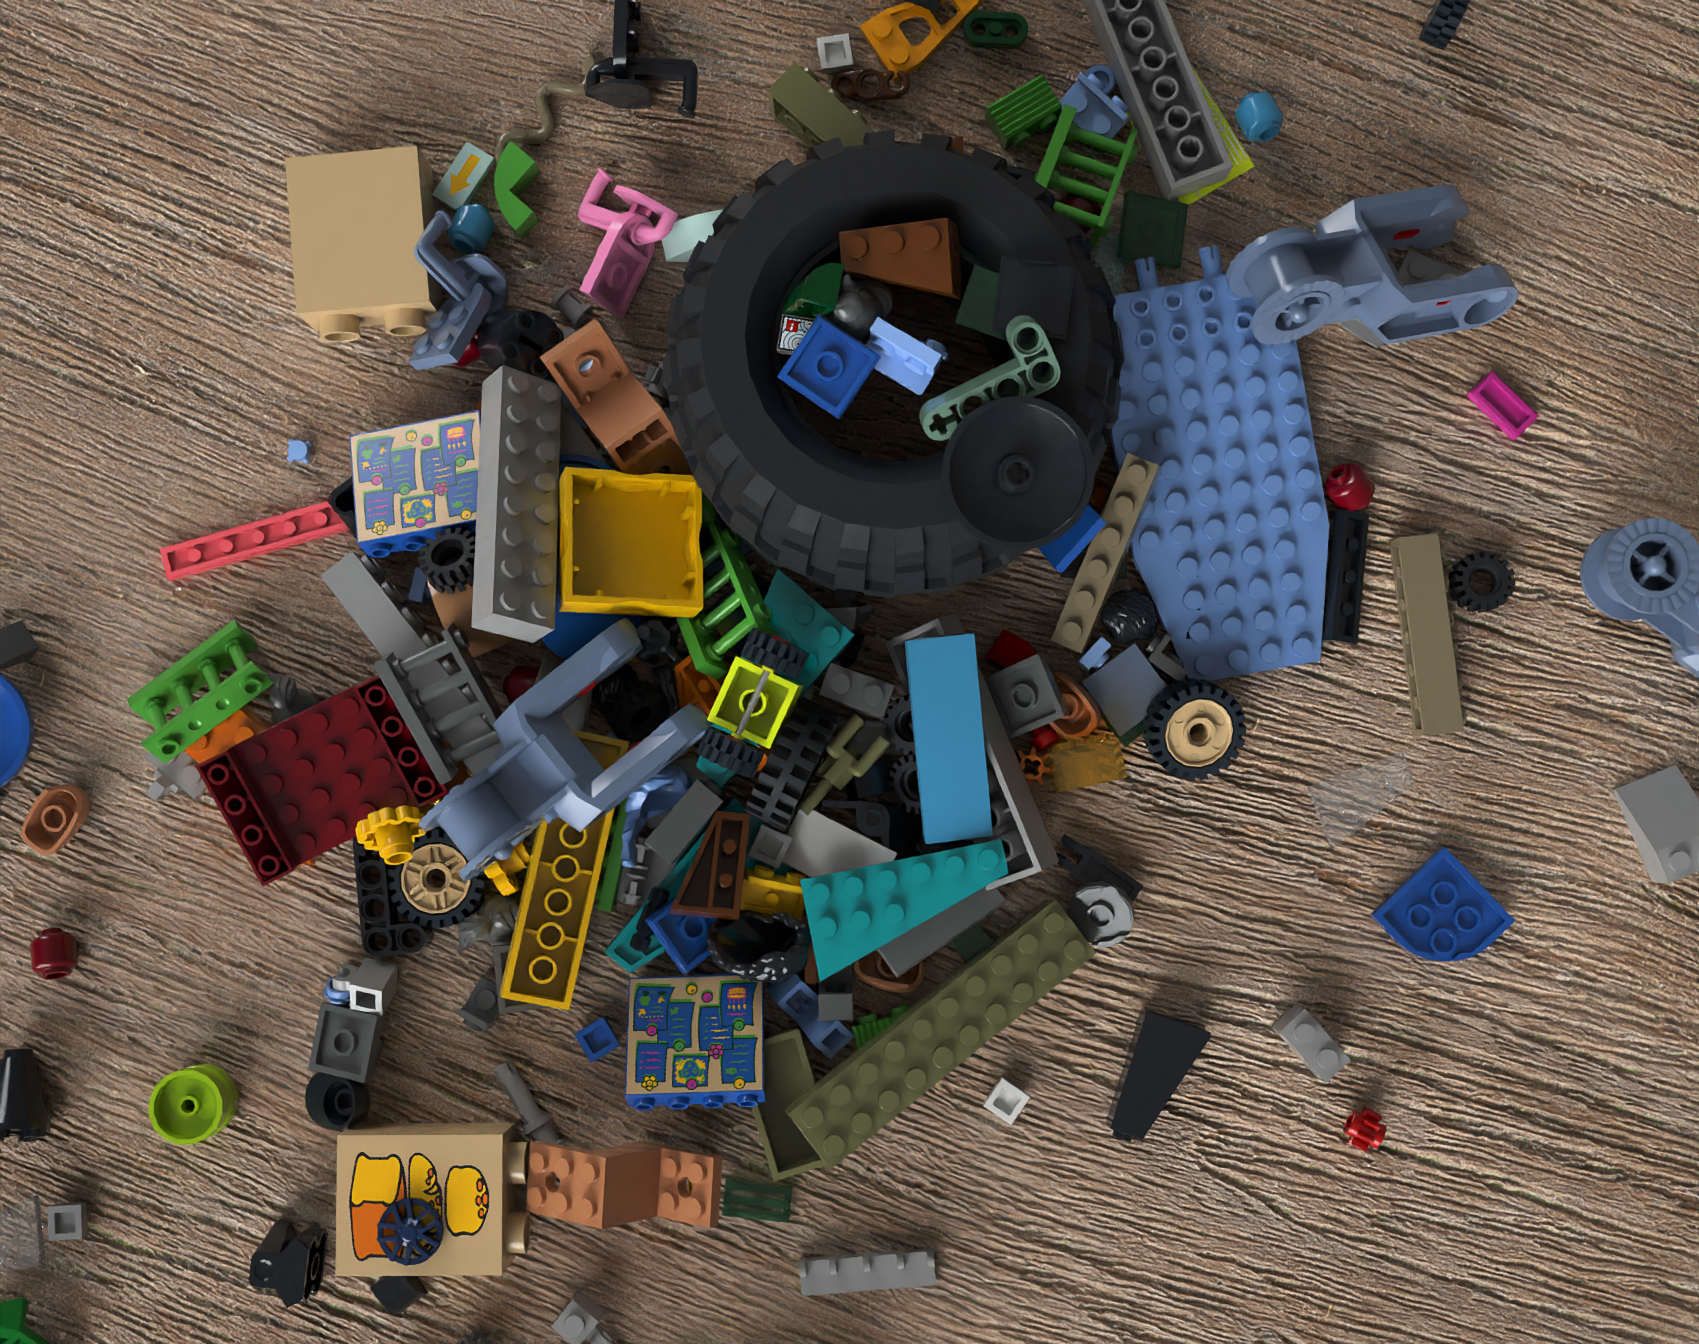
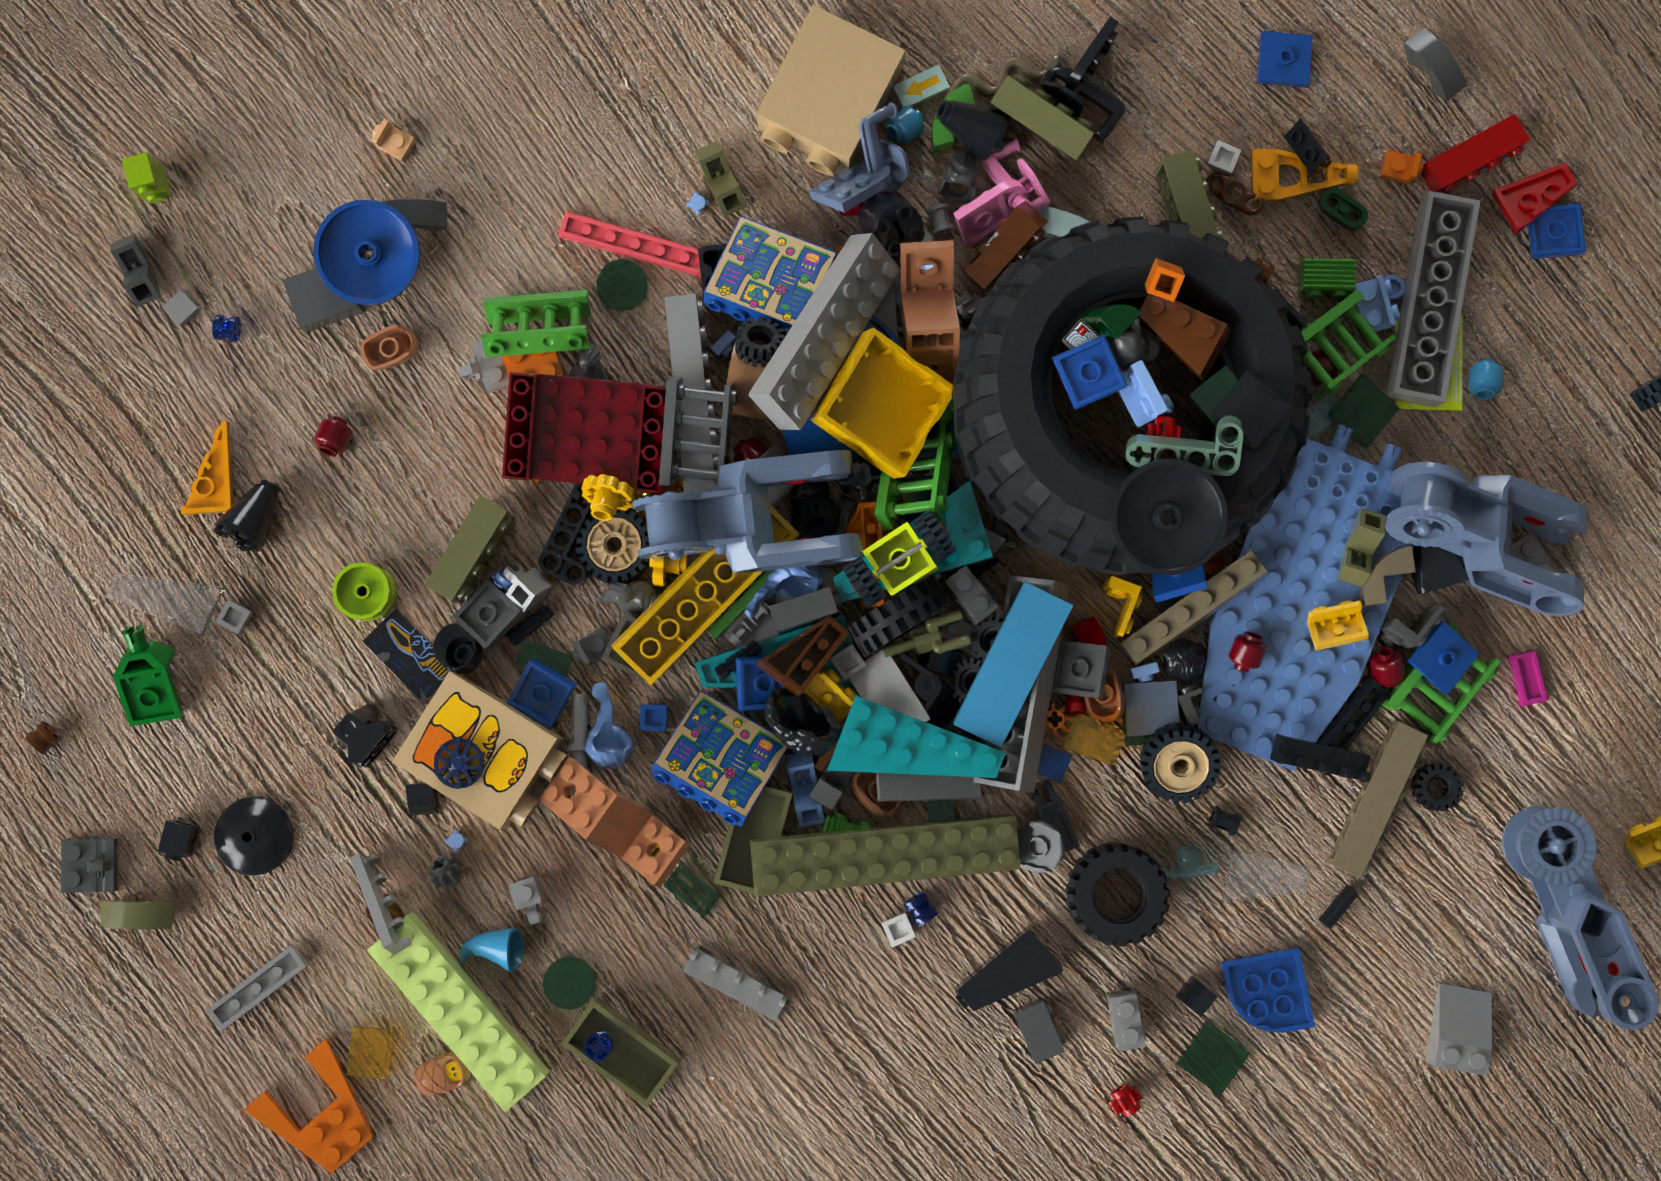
camera: 30 degrees right, 0 degrees up
(272, 590) = (622, 285): none -> clear green tile
(282, 985) = (471, 550): none -> olive brick
(284, 1140) = (407, 655): none -> black sticker
(306, 409) = (720, 179): none -> olive brick
(400, 1023) = (529, 625): none -> black axle
(439, 1051) = (550, 657): none -> clear green tile
(458, 1090) = (541, 693): none -> blue plate
(466, 1309) = (456, 840): none -> light blue piece
(545, 182) = (975, 126): none -> black cone
(562, 239) = (961, 171): none -> dark grey hair
(564, 1097) = (607, 742): none -> medium blue hair
(613, 127) = (1044, 117): none -> olive brick
(659, 280) = (1006, 244): none -> reddish brown wedge
(847, 212) = (1164, 280): none -> orange brick
(950, 376) = (1164, 427): none -> red gear
(1014, 582) = (1118, 589): none -> yellow bracket
(1016, 1063) = (921, 915): none -> clear blue wheel
(1059, 814) = (1053, 763): none -> blue sticker
(1192, 564) = (1247, 651): none -> dark red head
(1225, 1114) = (1038, 1030): none -> dark grey brick
(1239, 369) = (1360, 547): none -> olive brick
(1260, 923) = (1152, 902): none -> black tyre
(1269, 476) = (1337, 625): none -> yellow bracket
(1273, 832) = (1189, 865): none -> clear light blue tile
(1280, 760) = (1224, 820): none -> black bush
(1285, 373) = (1390, 563): none -> dark tan brick
(1334, 350) = (1436, 569): none -> black piece
(1340, 629) = (1321, 757): none -> black hinge
(1344, 445) = (1397, 634): none -> dark grey bracket
(1369, 968) = (1196, 996): none -> black brick
(1387, 450) = (1414, 679): none -> bright green fence
(1402, 439) = (1443, 657): none -> blue plate
(1427, 1022) = (1213, 1058): none -> clear green tile
(1458, 776) = (1338, 907): none -> black piece

